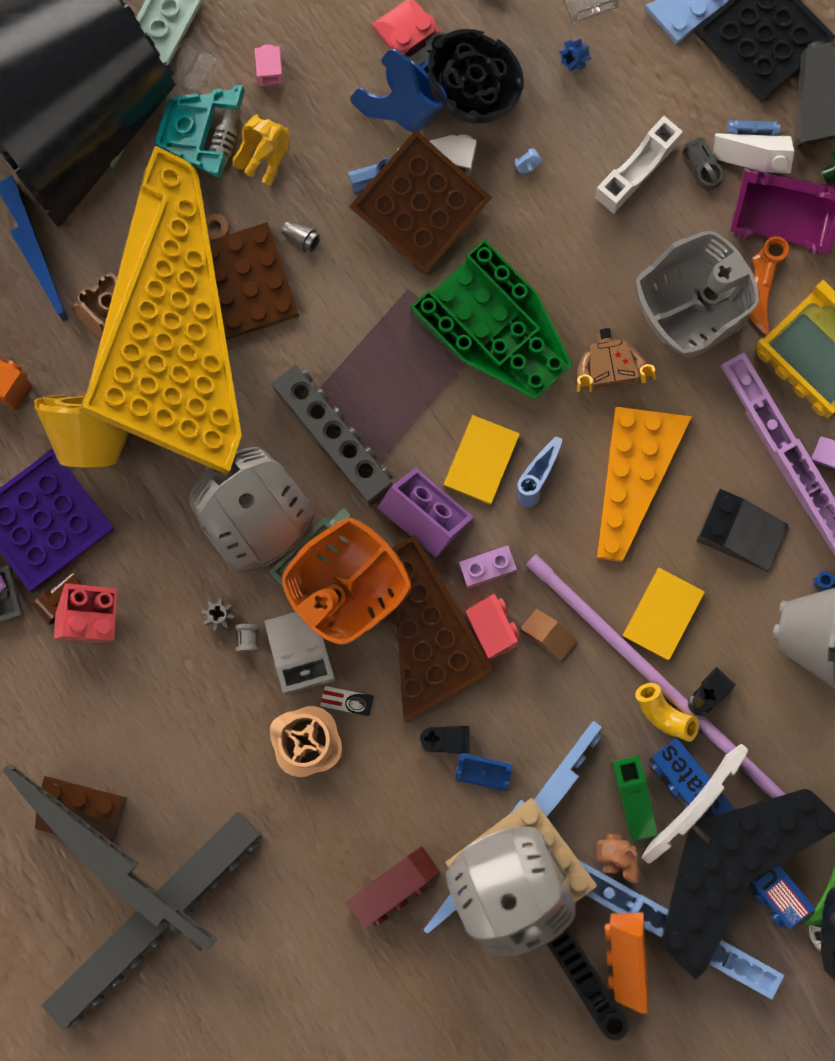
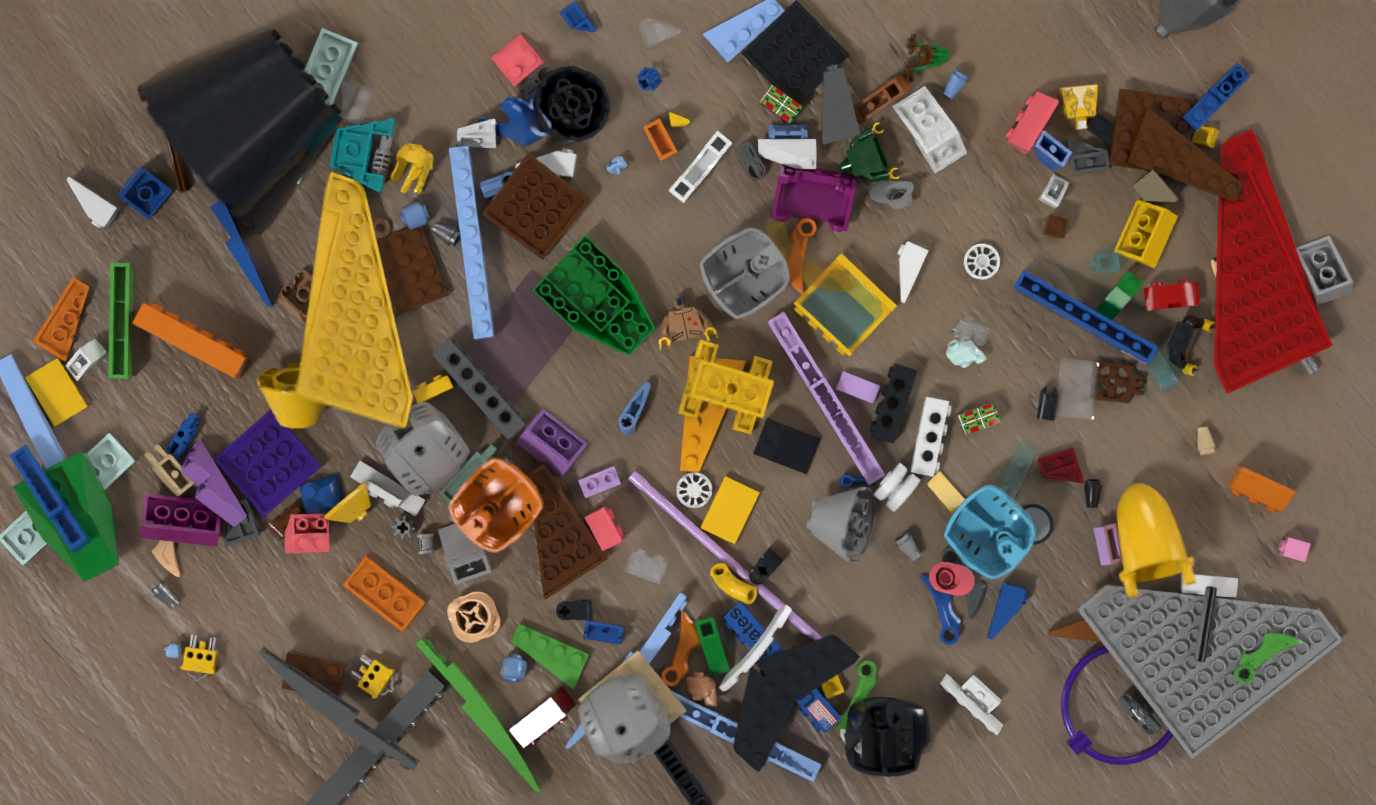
camera: 15 degrees left, 10 degrees up
(114, 568) = (321, 495): none -> blue slope
(147, 579) = (351, 507): none -> yellow slope
(169, 826) = (380, 680): none -> yellow piece
(185, 705) = (384, 593): none -> orange tile
(200, 562) = (386, 488): none -> white bracket
(260, 209) = (414, 215): none -> medium blue head
(269, 65) = (413, 97): bright pink brick -> none
(271, 433) = (440, 385): none -> yellow piece
(307, 875) = (480, 711): none -> bright green slope
(333, 248) = (471, 242): none -> light blue brick
(346, 701) = (501, 584): sticker -> none
(350, 112) = (478, 135): none -> white wing
(356, 816) = (513, 669): none -> medium blue head
(415, 802) = (557, 657): none -> bright green wing
(481, 460) = (591, 400): yellow tile -> none
(548, 634) = (646, 529): medium nougat slope -> none
(548, 682) = (646, 566): none -> clear slope
(586, 130) = (660, 140): none -> orange piece
(599, 791) = (687, 642): none -> orange piece
(611, 108) = (678, 121): none -> yellow slope
(615, 585) = (694, 490): none -> white wheel
(628, 960) = (710, 760): orange slope -> none
(646, 432) = (710, 382): none -> yellow piece
(745, 93) = (781, 104): none -> piece
(779, 307) = (801, 267): none -> clear yellow tile
(800, 866) = (832, 687): none -> yellow slope

